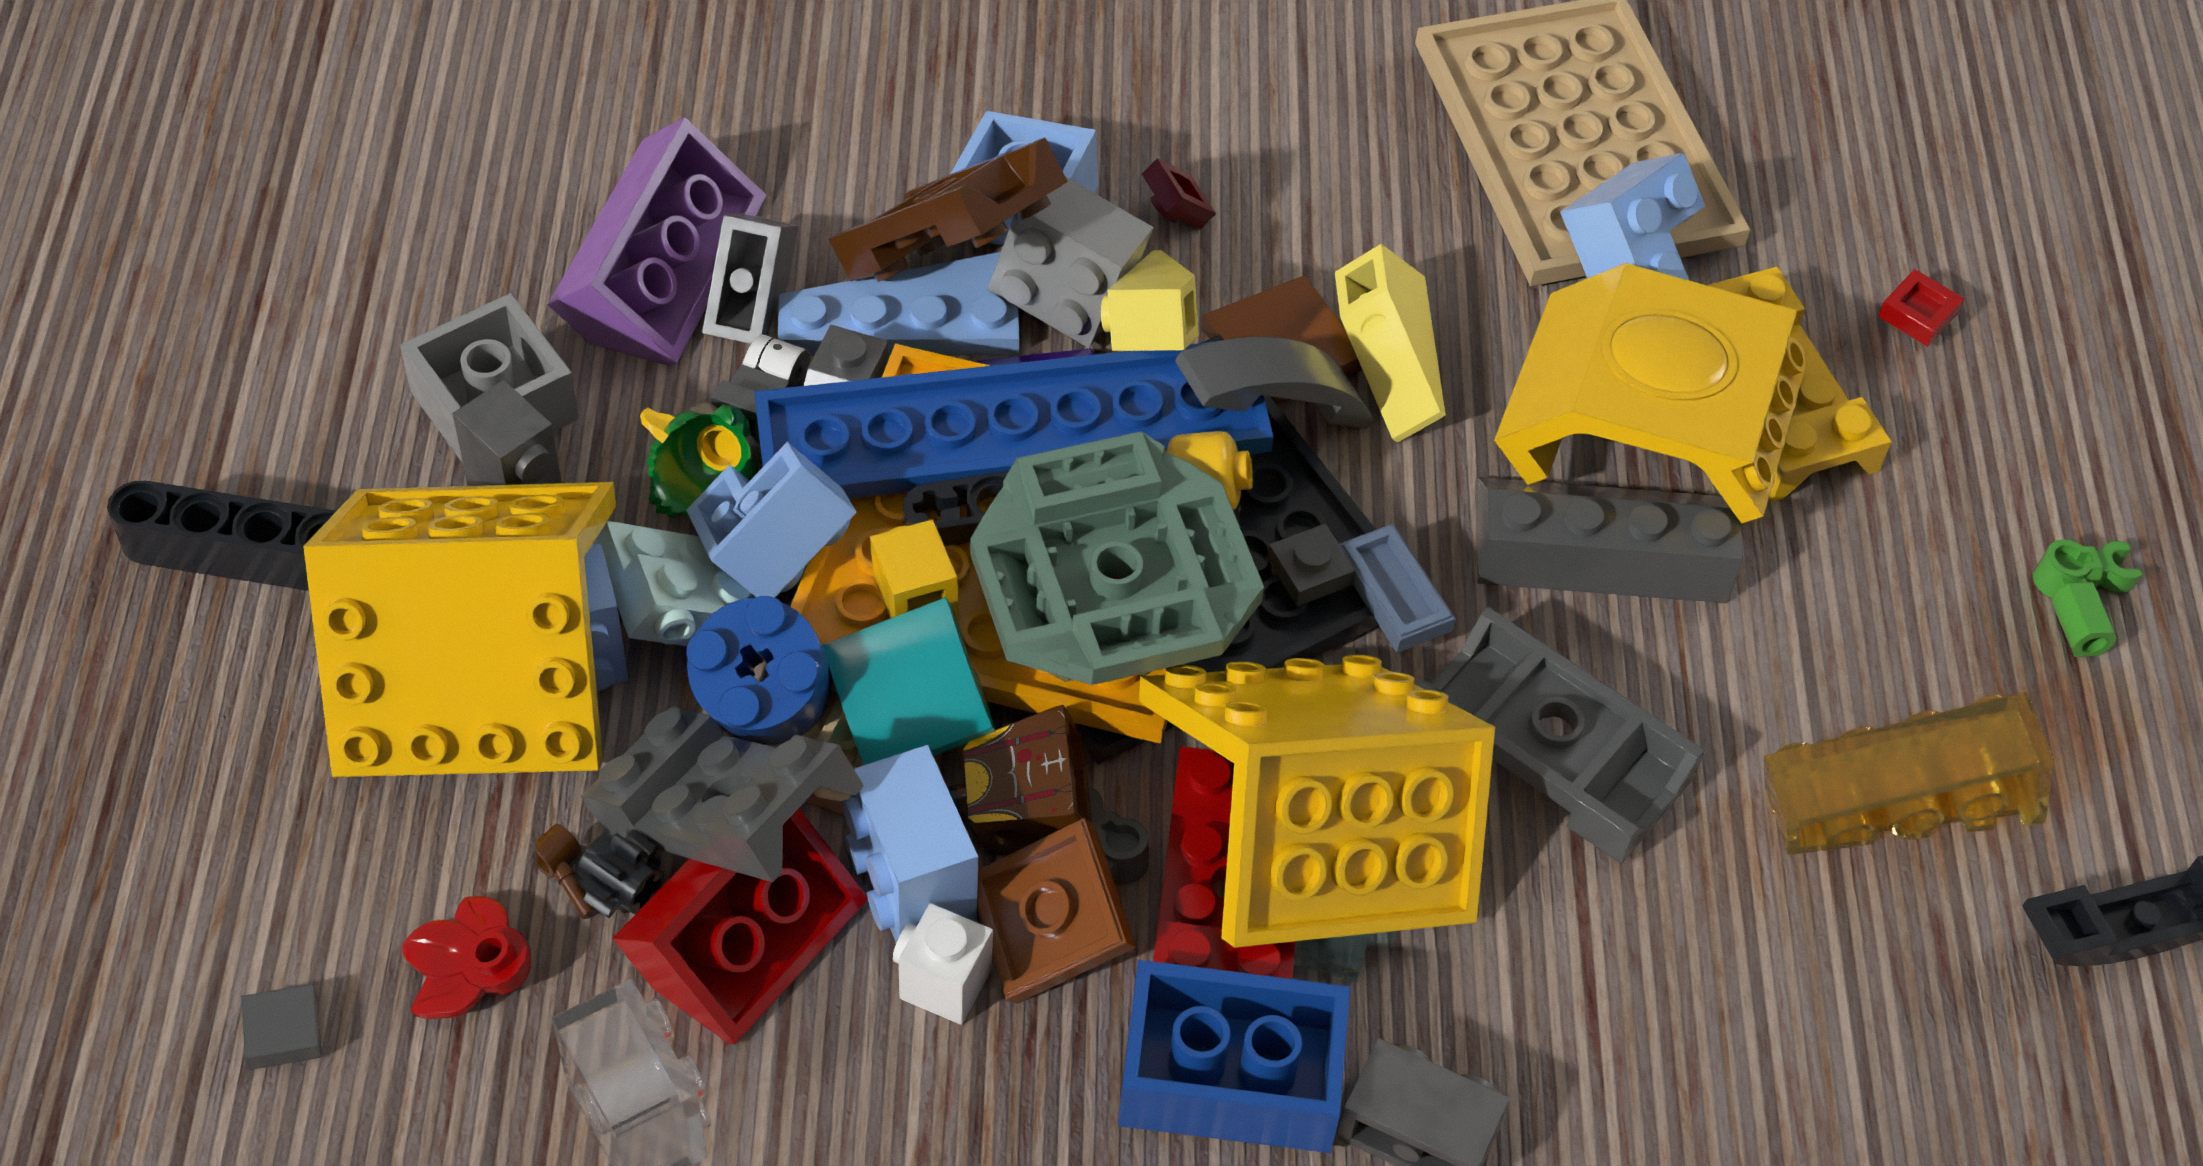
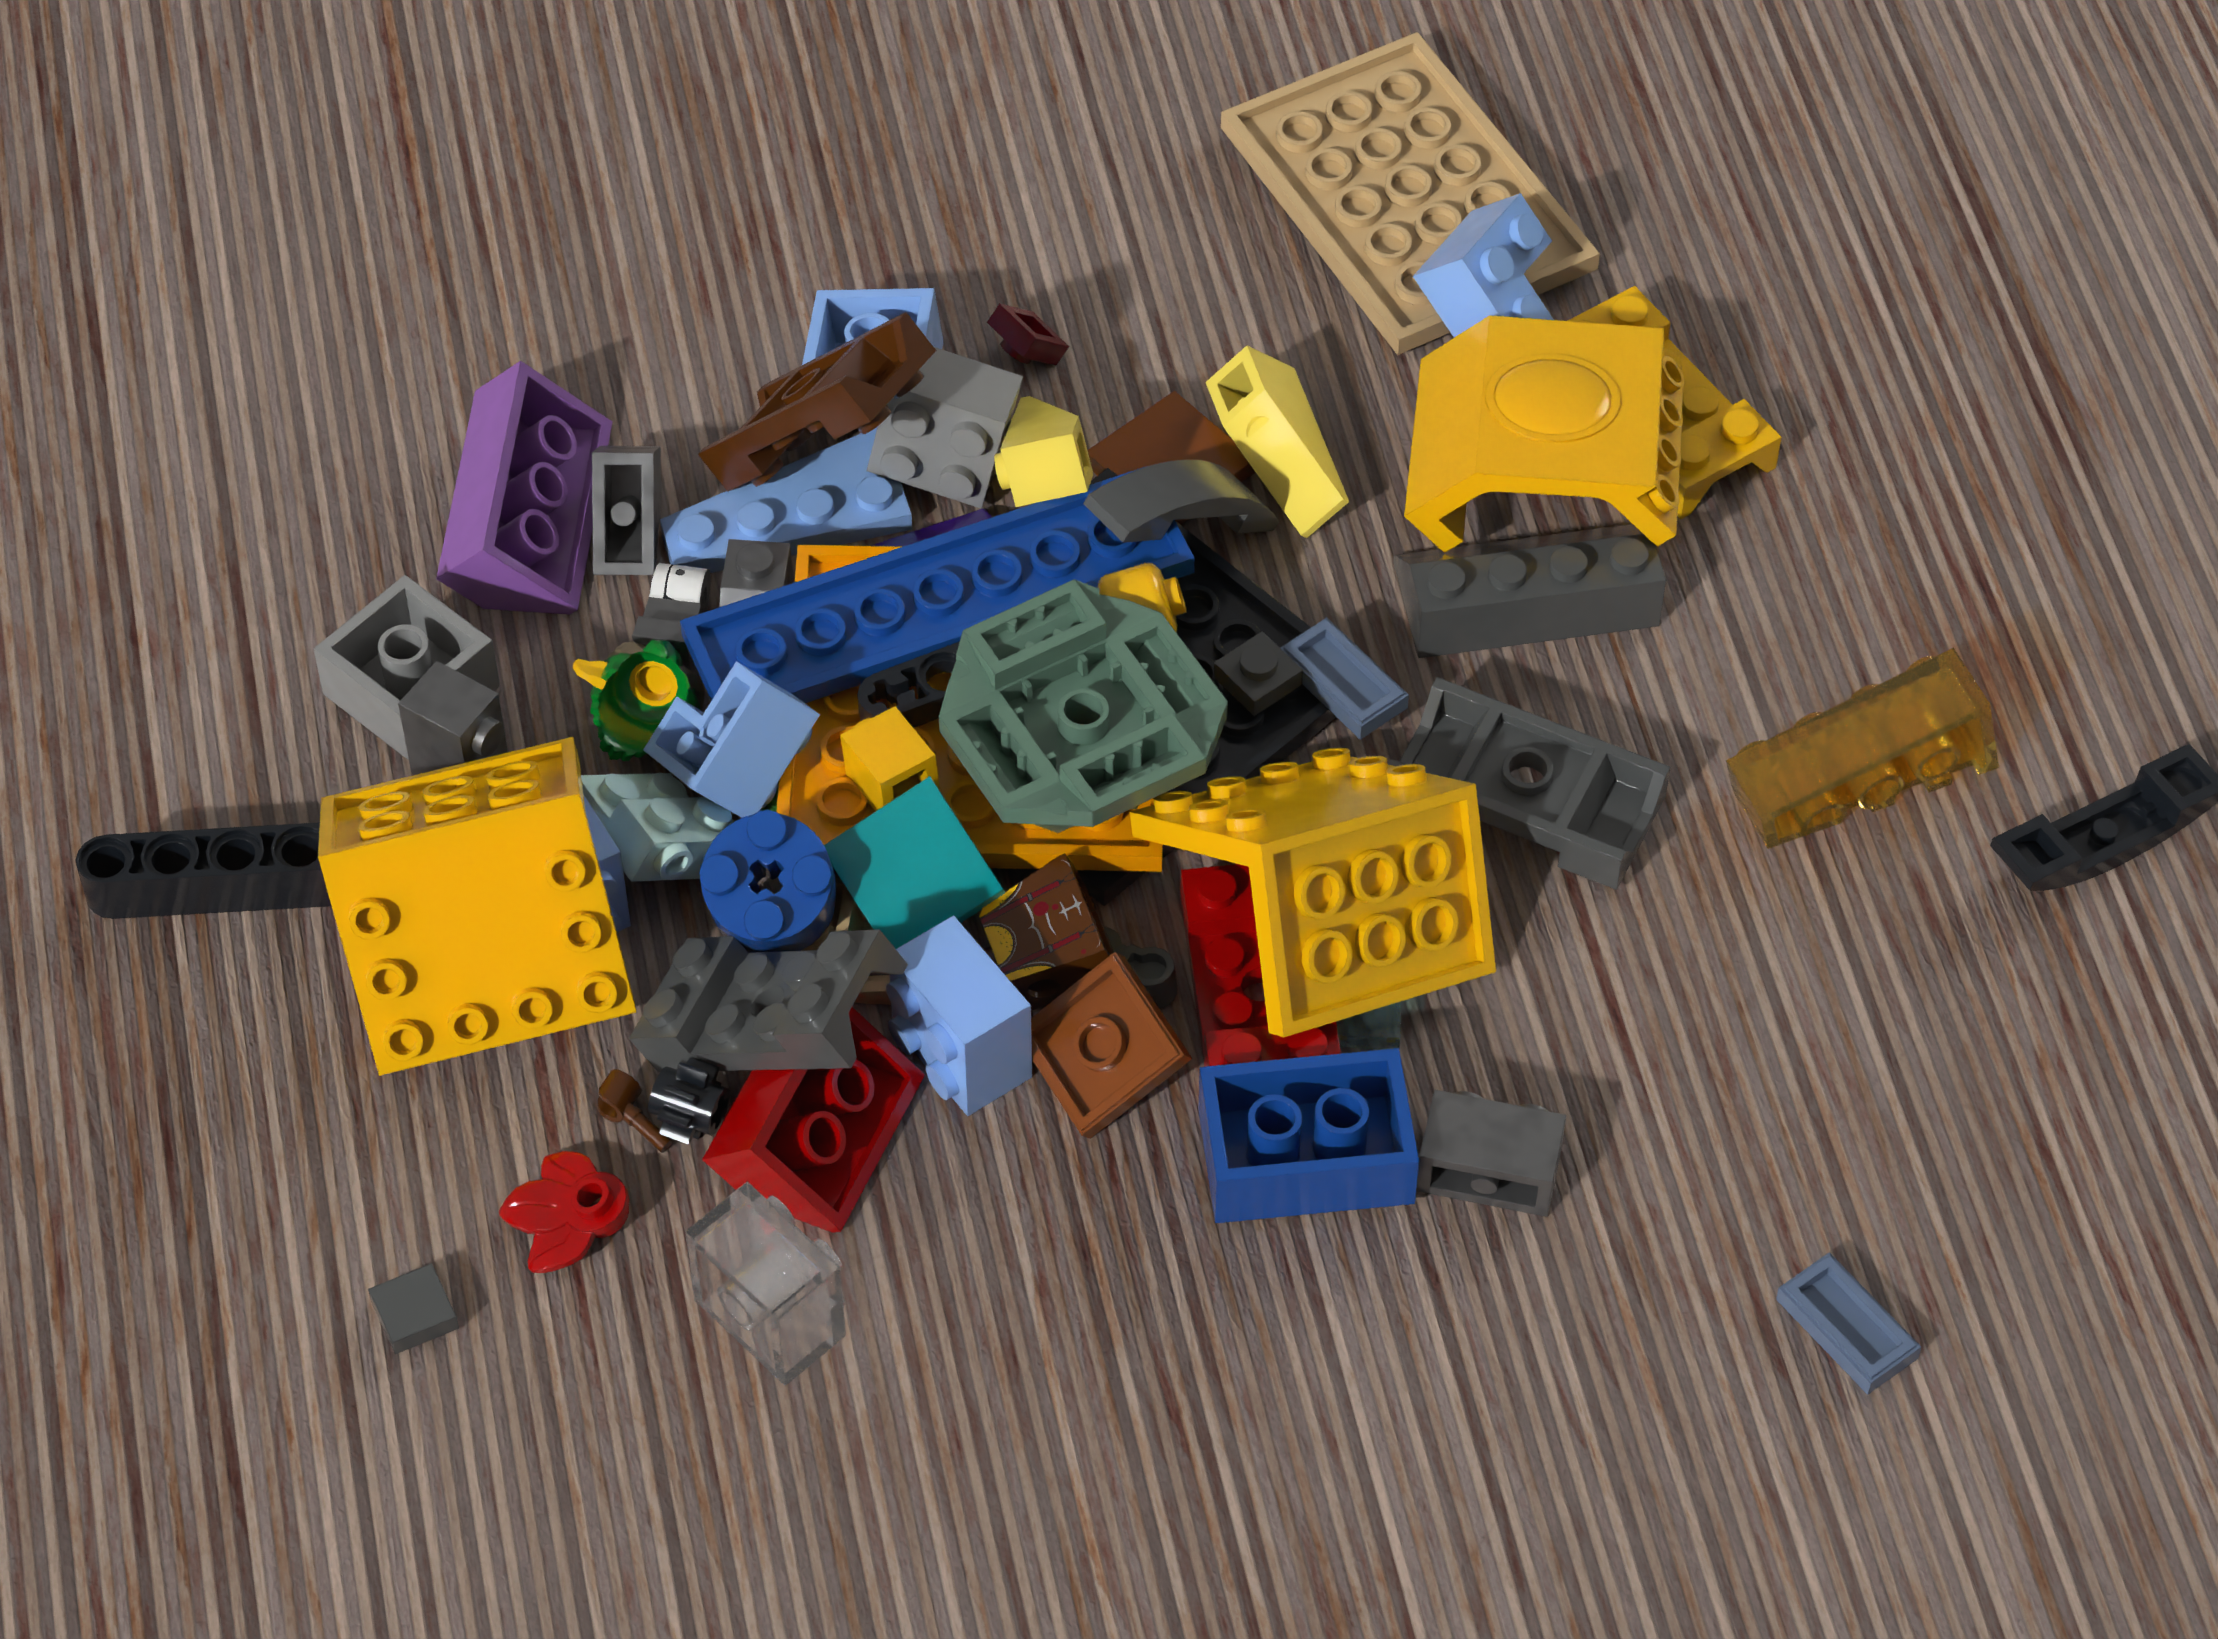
camera: 10 degrees left, 0 degrees up
(943, 962) = (1016, 1113): white brick -> none
(1921, 307) = (1782, 297): red plate -> none
(2070, 578) = (1976, 531): bright green bar -> none

